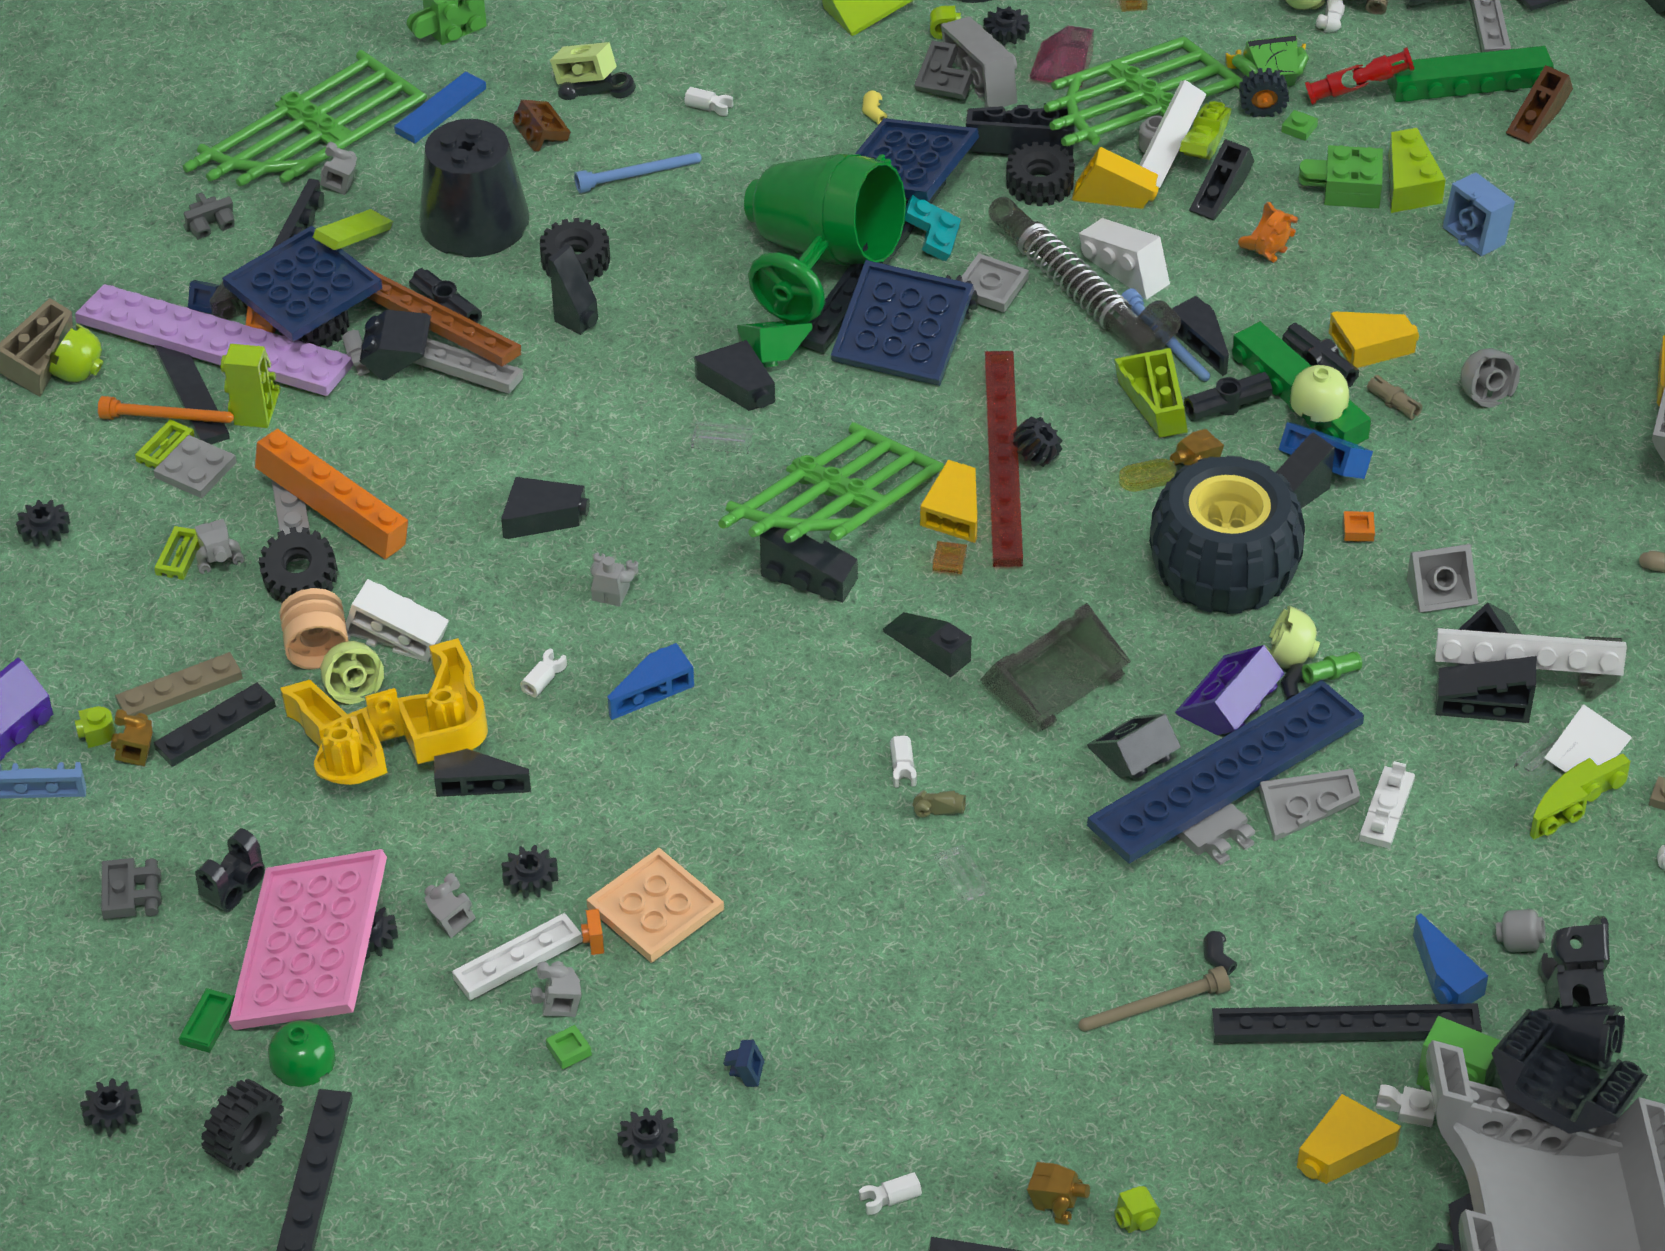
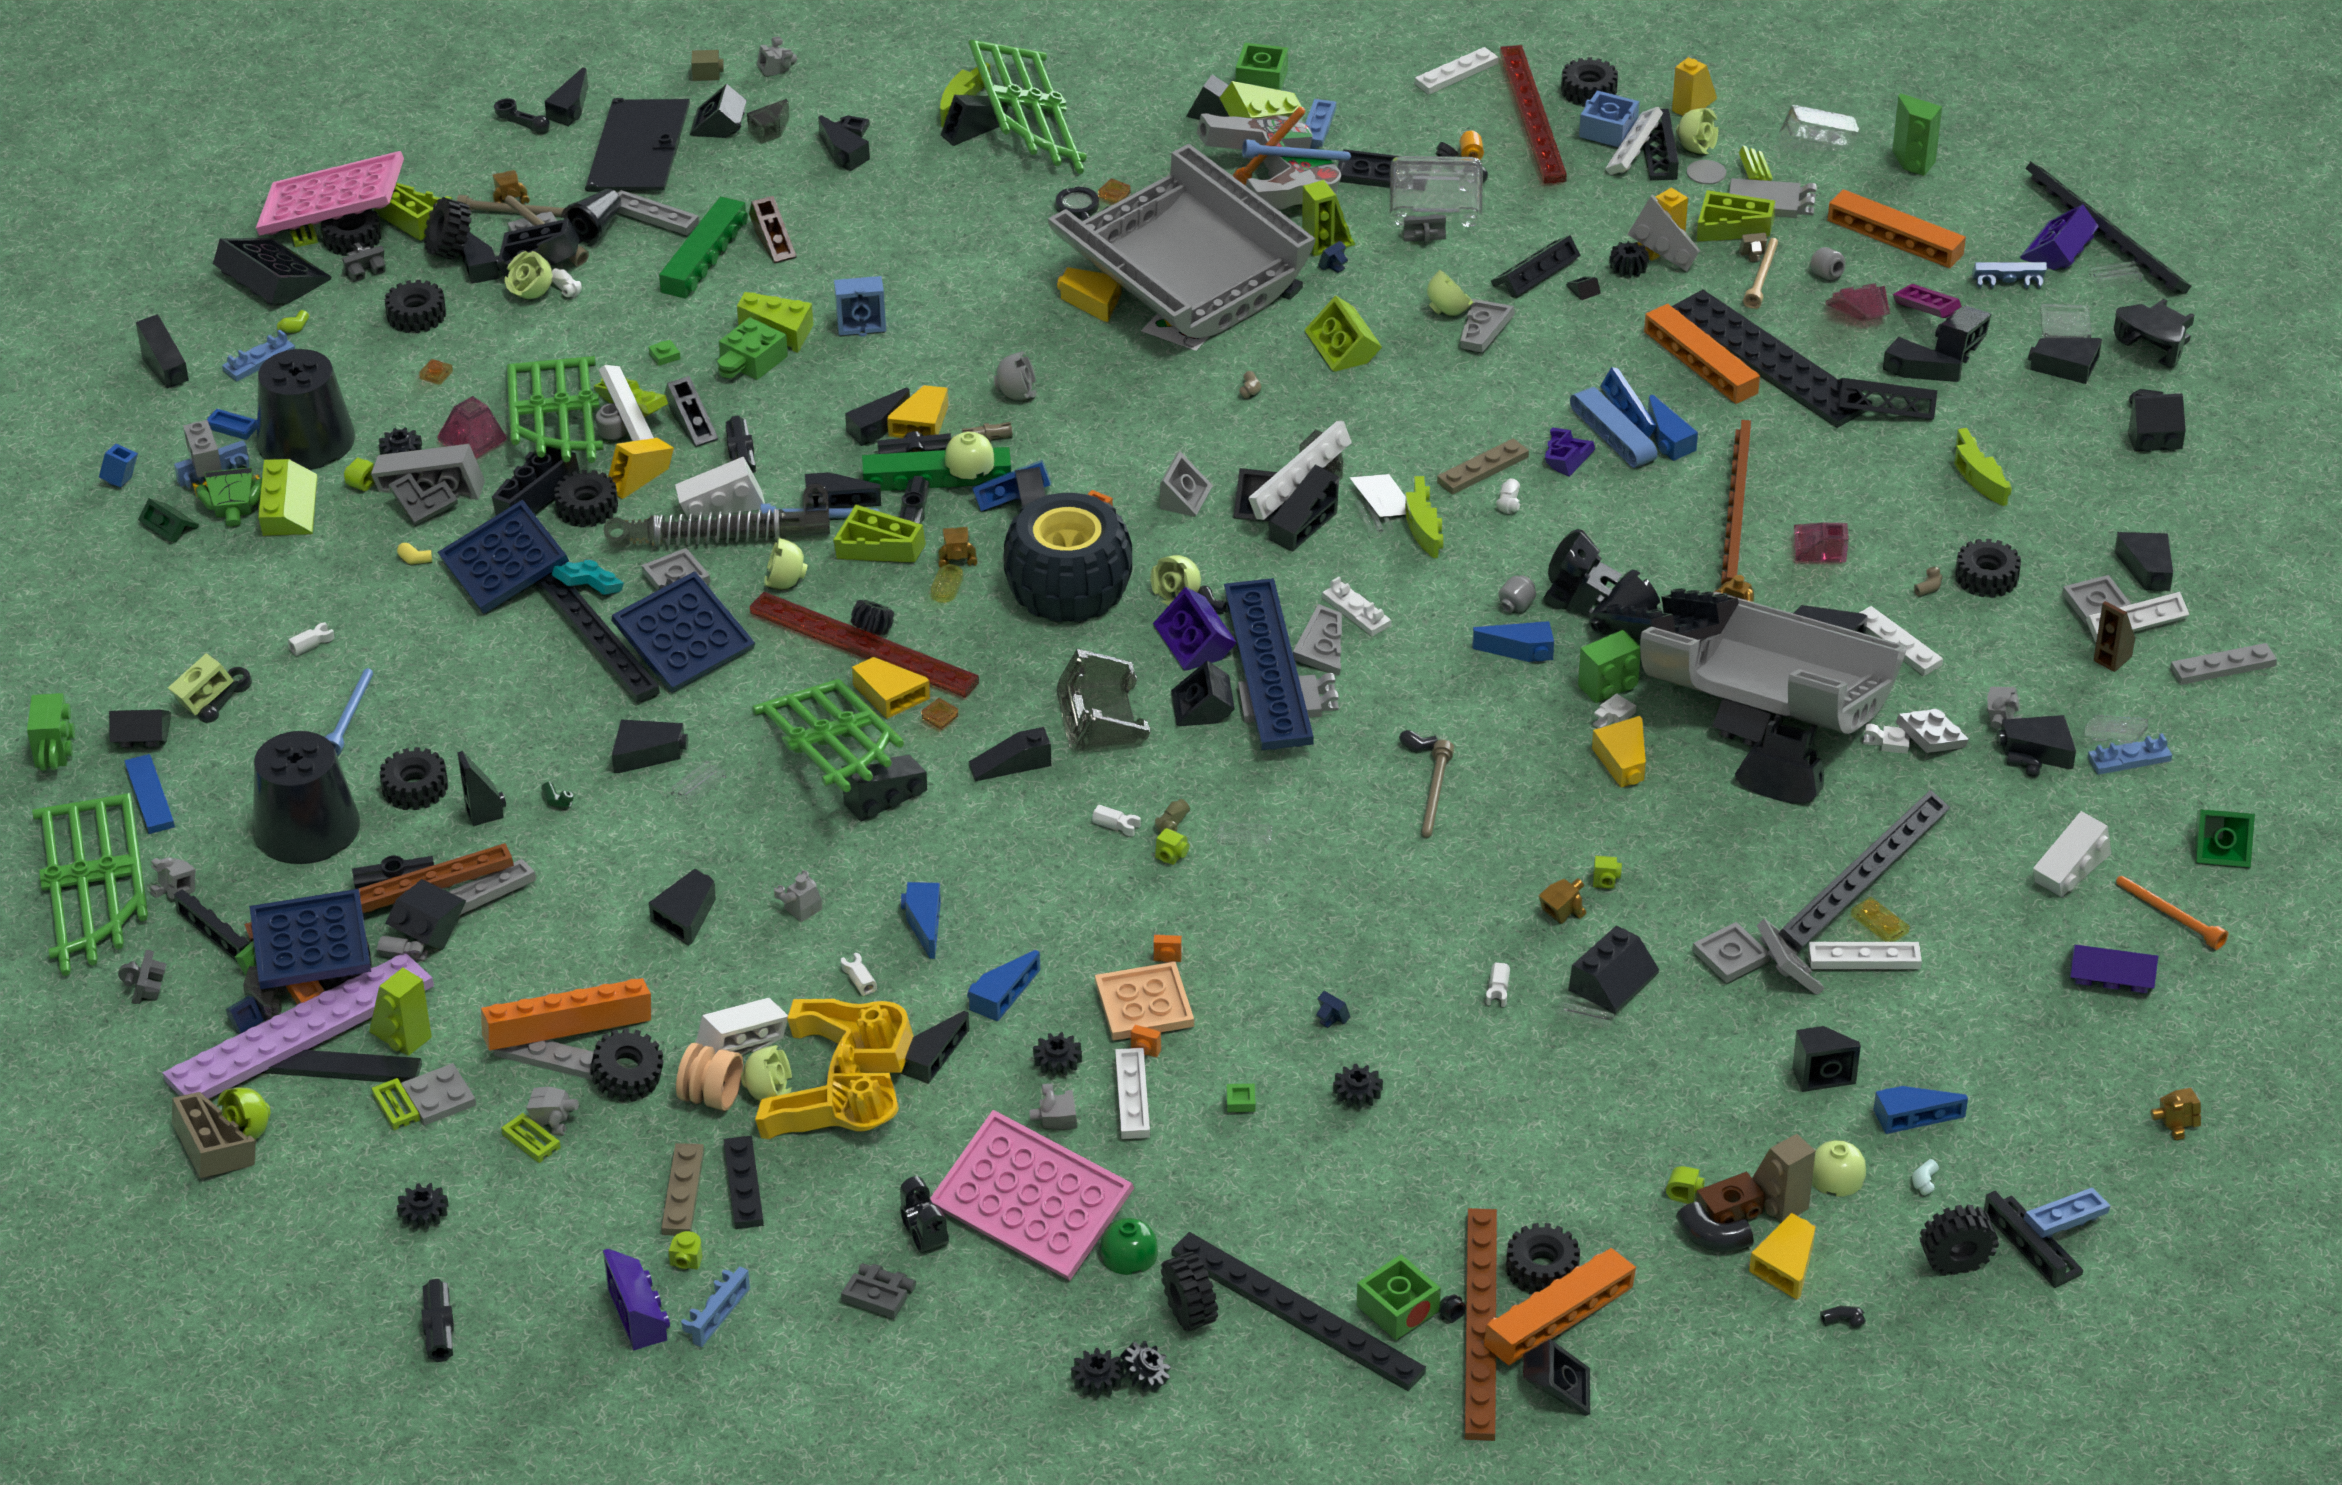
camera: 60 degrees left, 5 degrees down
(110, 407) = (321, 1119): orange piece -> none
(135, 741) = (726, 1230): pearl gold piece -> none
(141, 1152) = (1144, 1366): none -> black gear
(207, 1020) = (1049, 1291): green tile -> none
(352, 229) = (270, 888): lime tile -> none
(510, 57) = (139, 726): none -> black slope
(539, 122) = (236, 743): reddish brown bracket -> none
(561, 990) = (1186, 1080): light grey piece -> none
(592, 784) = (1003, 985): none -> blue slope
(624, 353) = (557, 800): none -> dark green arm
(739, 887) = (1167, 948): none -> orange plate
(774, 339) = (626, 703): green slope -> none
(827, 214) = (546, 608): green piece -> none
(893, 821) = (1171, 846): none -> lime plate
(1059, 346) = (785, 565): none -> yellowish green cylinder
(1208, 237) = (739, 441): none -> black piece
(1263, 93) = (624, 348): black wheel -> none
(1270, 233) = (772, 410): orange hair -> none
(1272, 53) = (592, 333): bright green torso -> none
(1321, 300) = (870, 420): none -> black slope
(1331, 667) = (1216, 574): bright green pin -> none
(1336, 1022) = (1525, 710): black plate -> none
(1377, 70) = (663, 284): red piece -> none

